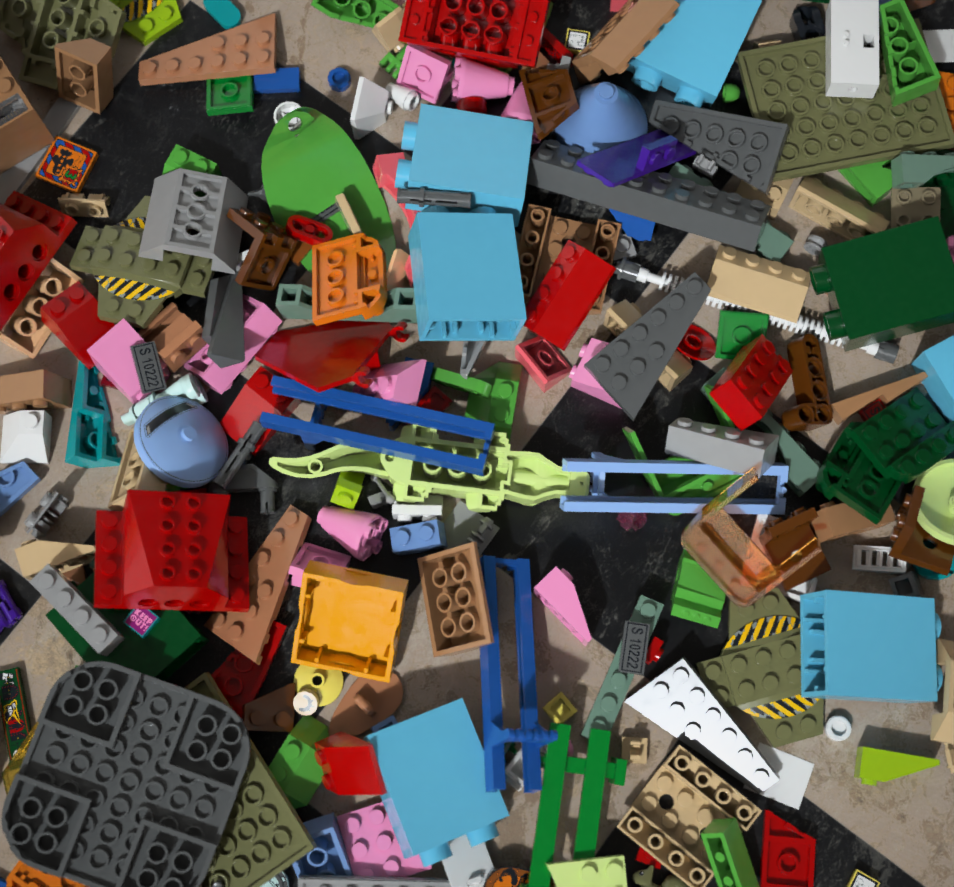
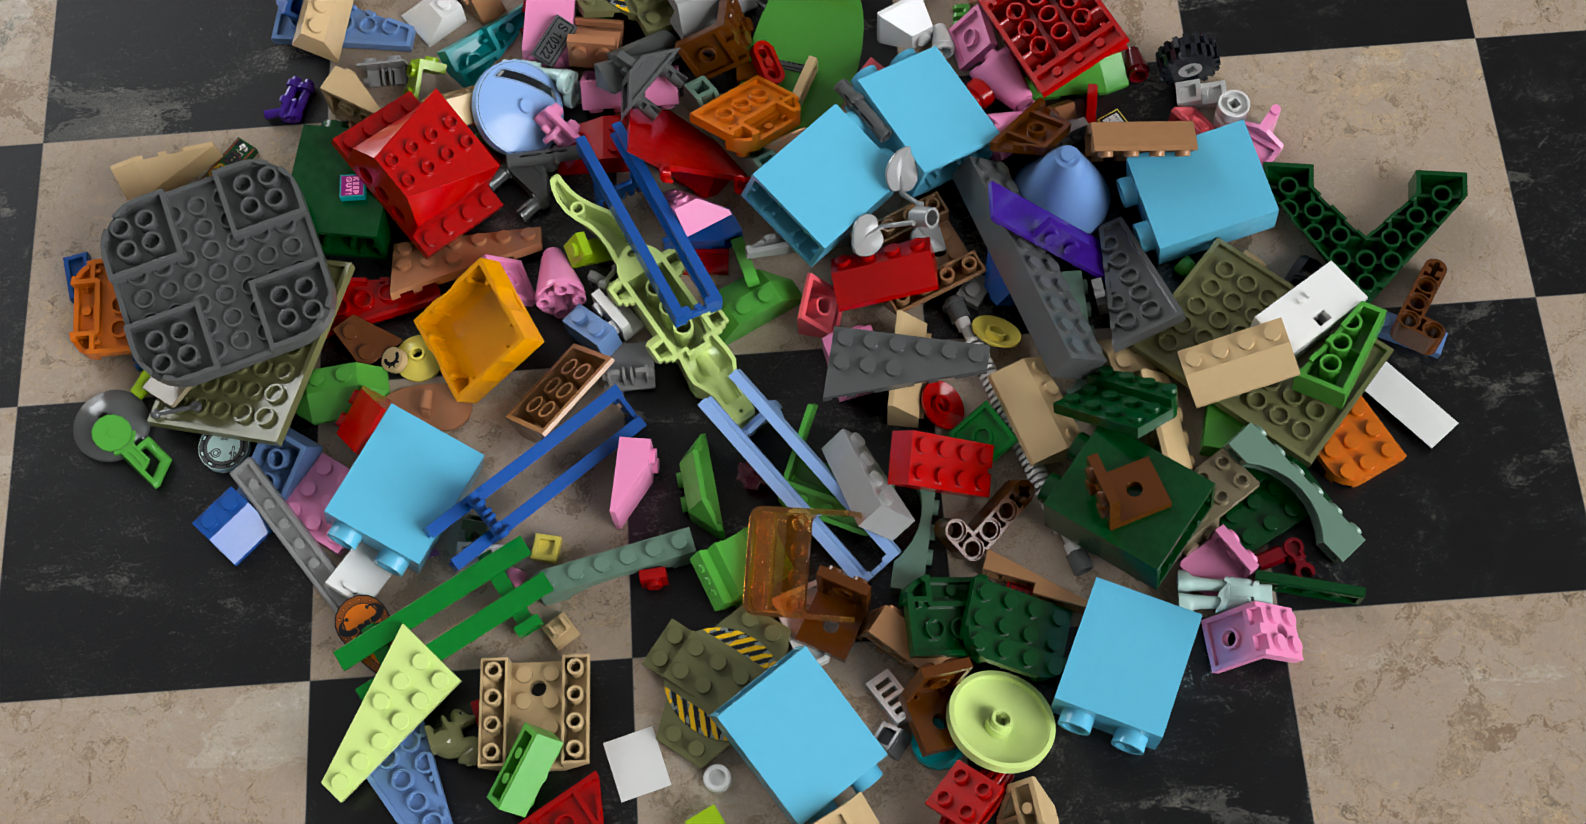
camera: 50 degrees right, 10 degrees down
(73, 495) = (417, 67): none -> lime bracket
(77, 610) = (323, 125): light grey brick -> none
(224, 427) = (555, 128): none -> bright pink hips
(249, 331) = (641, 74): none -> dark grey connector
(556, 234) = (900, 175): none -> light grey plant
(610, 561) = (700, 488): none -> bright green wedge
(634, 648) = (637, 552): dark grey tile -> none
(669, 258) = (996, 331): none -> light yellow dish
(693, 713) = (627, 652): wing -> none
(817, 224) = (1121, 402): none -> dark green plate
(856, 122) = (1239, 362): none -> tan slope
(894, 292) = (1112, 495): none -> reddish brown bracket

